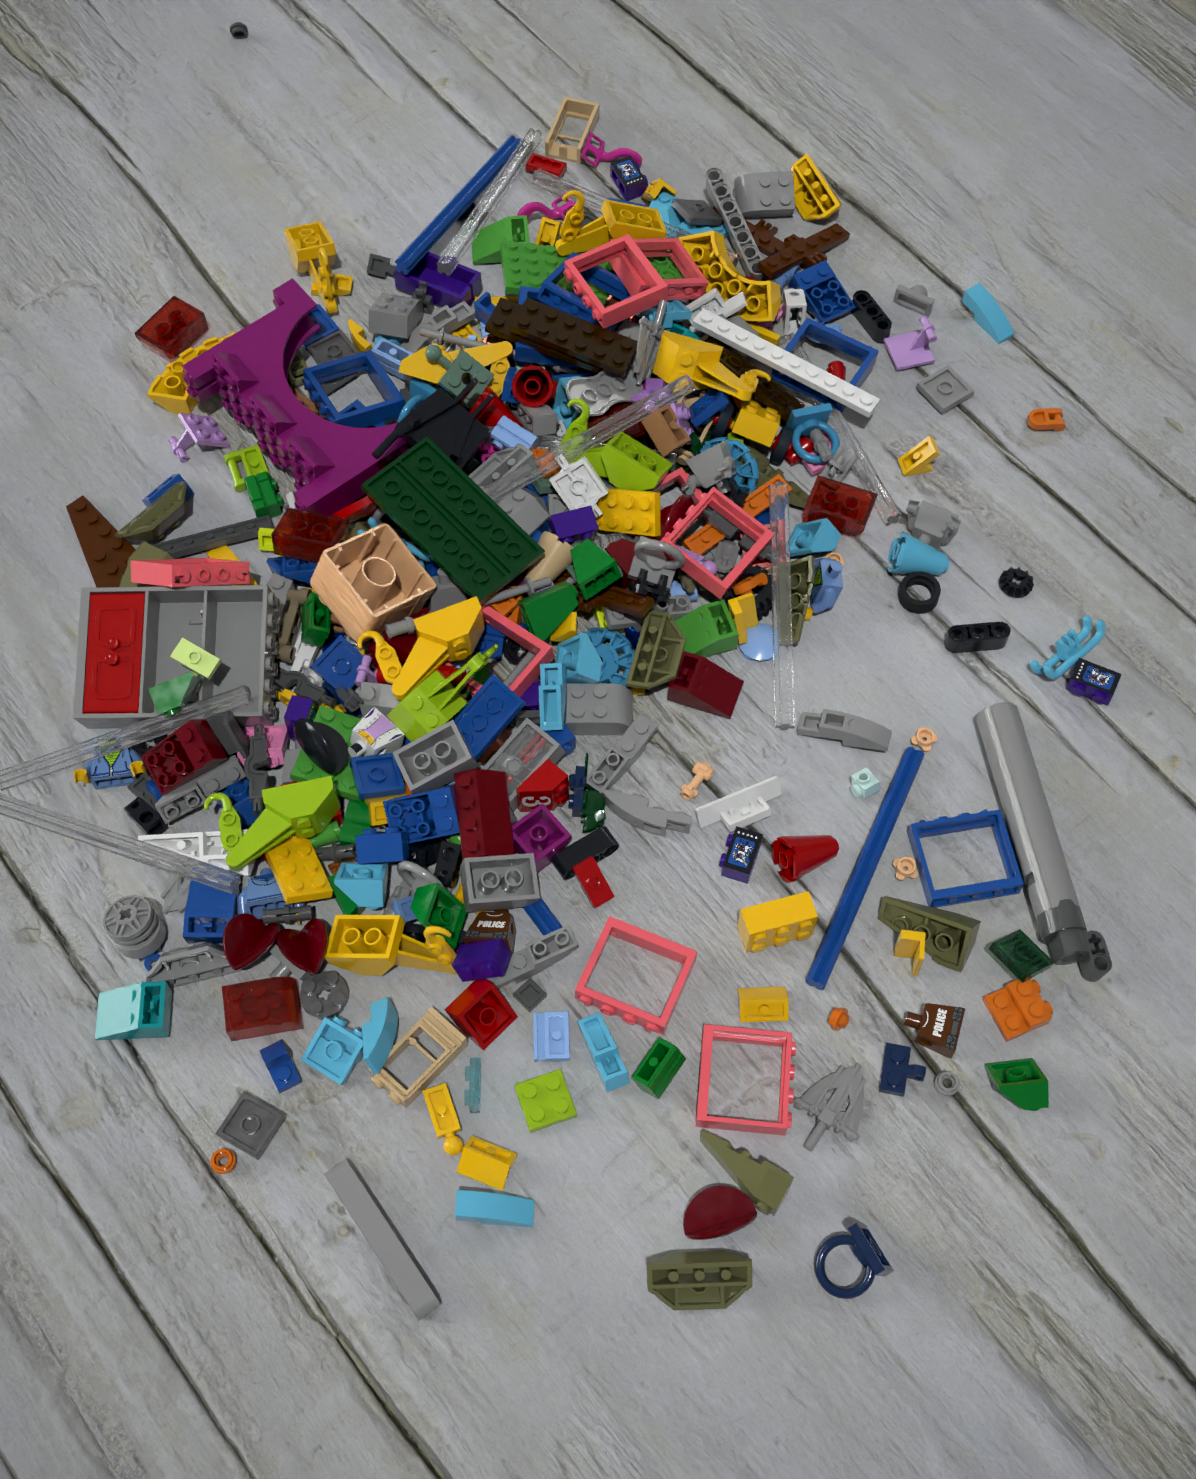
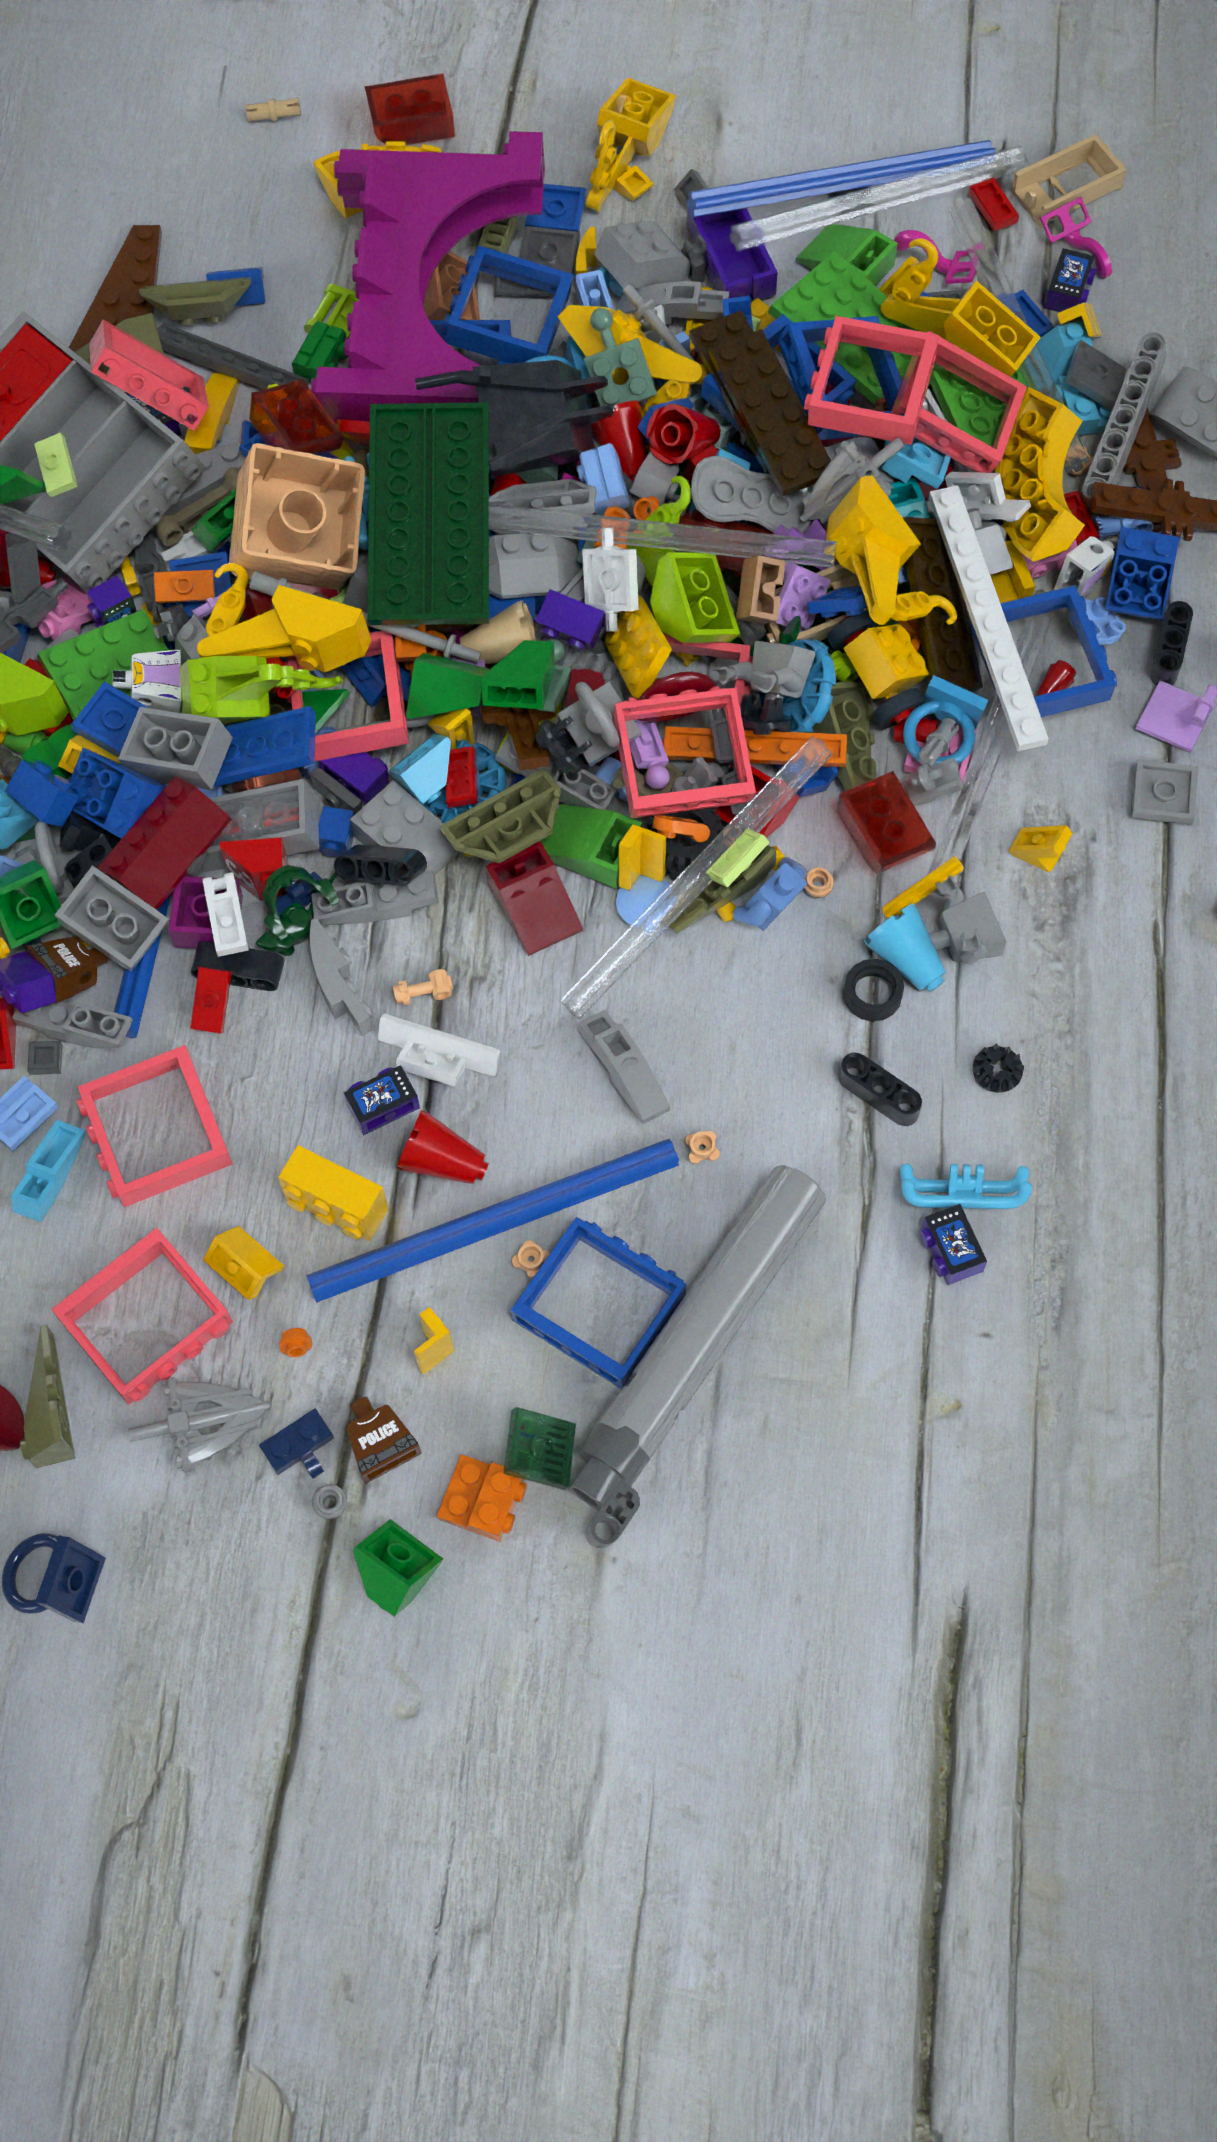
camera: 45 degrees right, 5 degrees up
(82, 385) = (273, 109): none -> tan pin
(199, 430) = (327, 240): lavender plate -> none
(321, 744) = (92, 647): black piece -> none
(334, 672) = (184, 586): none -> orange plate
(549, 437) = (642, 506): none -> orange plate
(552, 696) = (360, 780): medium azure slope -> none
(561, 825) = (225, 915): none -> white plate
(572, 781) = (283, 878): none -> dark green helmet
(607, 741) = (362, 864): none -> black beam
(609, 654) = (462, 777): none -> red plate
(658, 1068) = (73, 1230): green brick -> none
(798, 574) = (737, 857): none -> yellowish green plate
(813, 538) = (819, 838): medium azure slope -> none
(864, 784) = (582, 1137): light aqua plate -> none
(890, 522) = (923, 887): none -> yellow axle
(947, 936) = (489, 1349): olive wedge -> none

